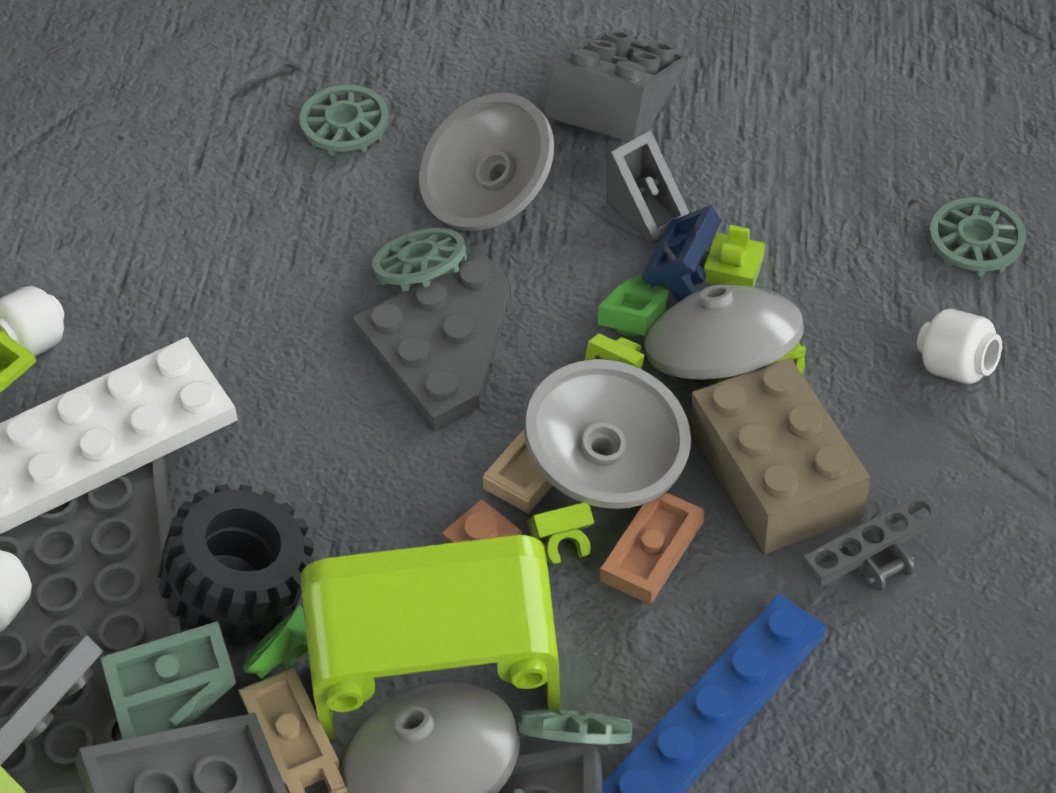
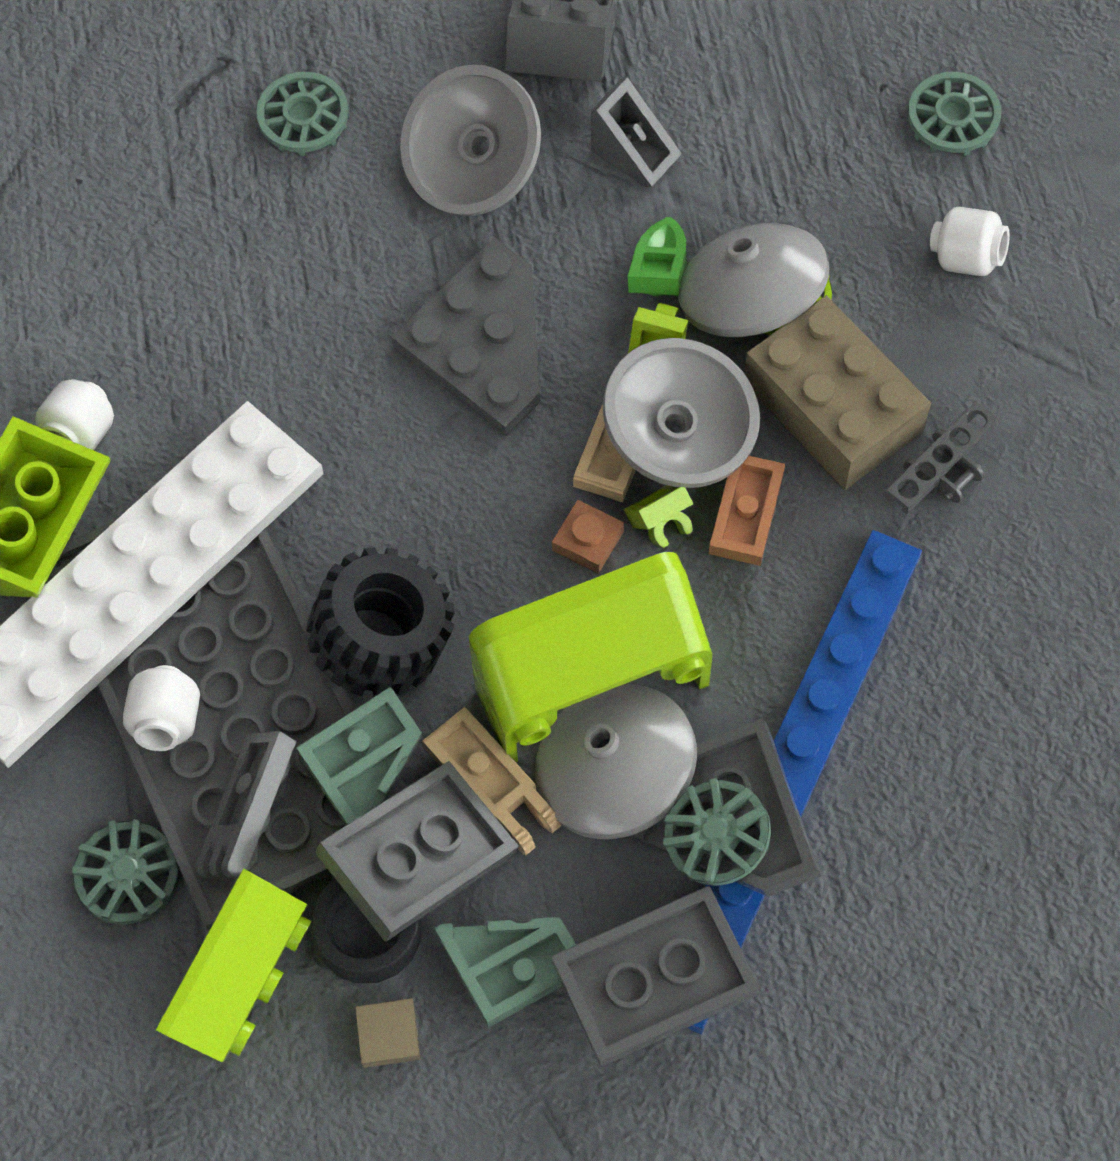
camera: 15 degrees left, 15 degrees up
(280, 646) = (446, 690): bright green plate -> none
(424, 257) = (435, 258): sand green wheel -> none
(575, 728) = (736, 707): sand green wheel -> none
(680, 251) = (687, 196): dark blue plate -> none
(734, 258) = (735, 192): lime tile -> none

